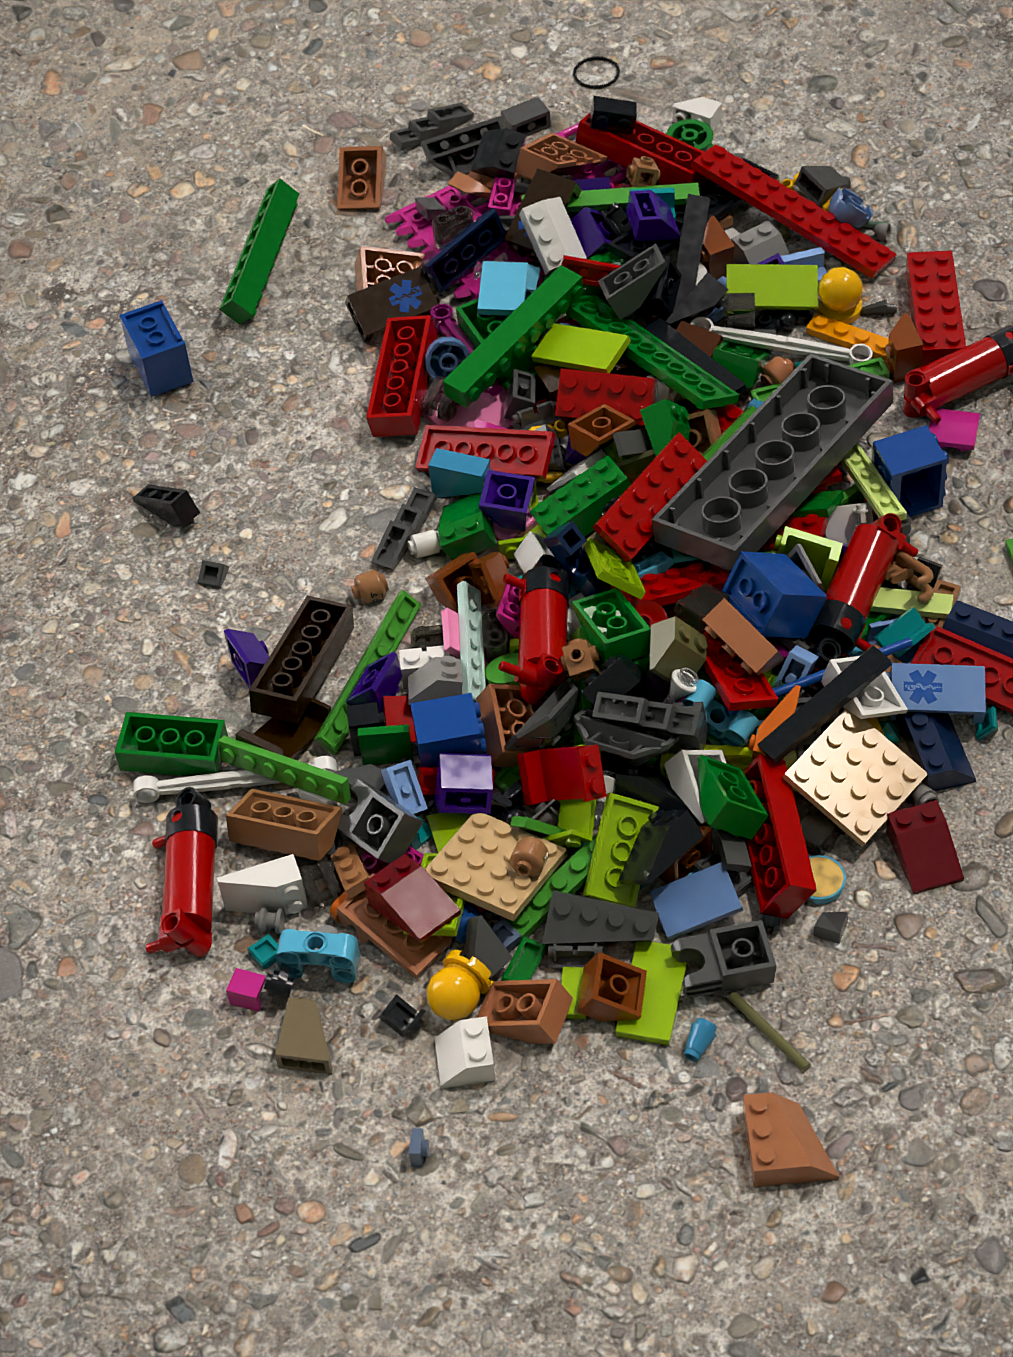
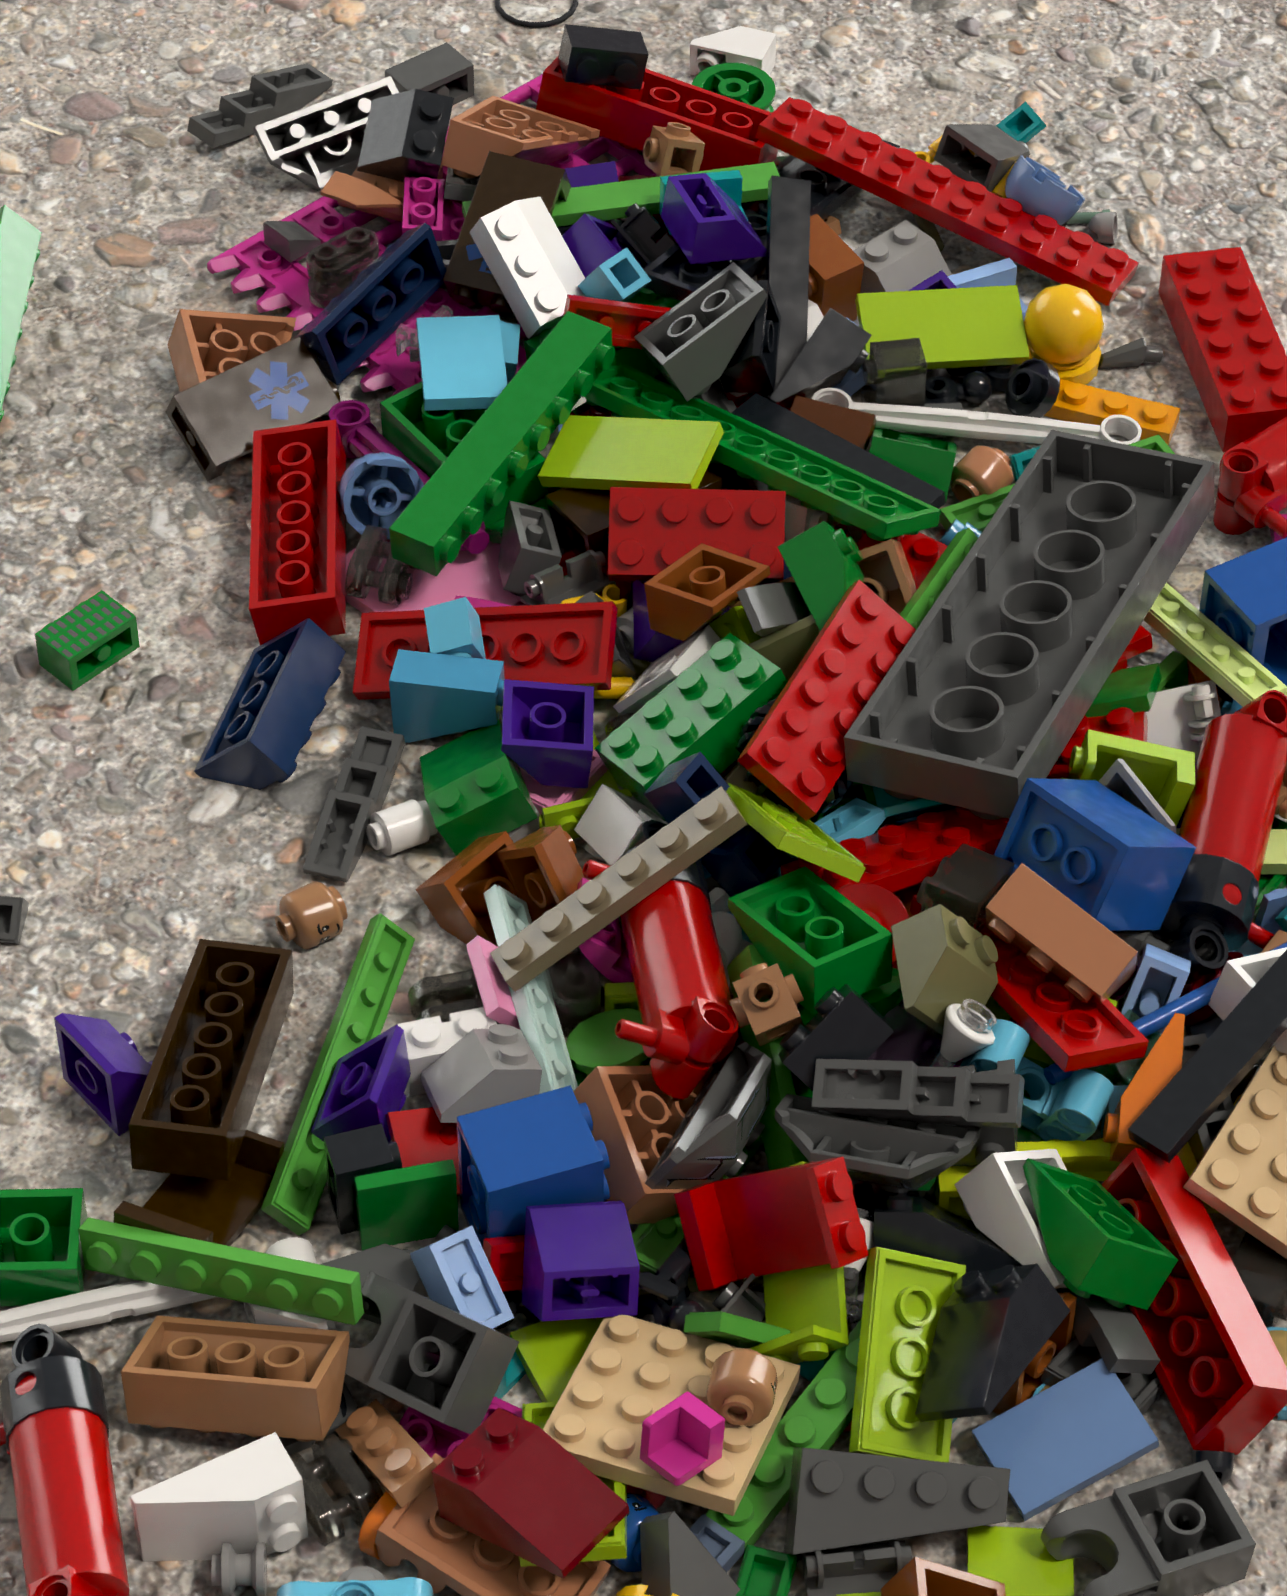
camera: 15 degrees left, 5 degrees down
(282, 427) = (87, 640): none -> green brick
(361, 177) = (150, 197): nougat slope -> none
(372, 473) = (273, 708): none -> dark blue slope
(468, 440) = (454, 629): none -> medium azure brick
(491, 879) = (682, 1438): none -> dark pink panel
(518, 590) = (618, 888): none -> dark tan plate
(594, 247) = (616, 278): none -> medium azure brick
(815, 325) = (1032, 388): none -> black plate
(851, 166) = (1022, 123): none -> teal slope
(903, 349) = (1202, 414): dark orange slope -> none

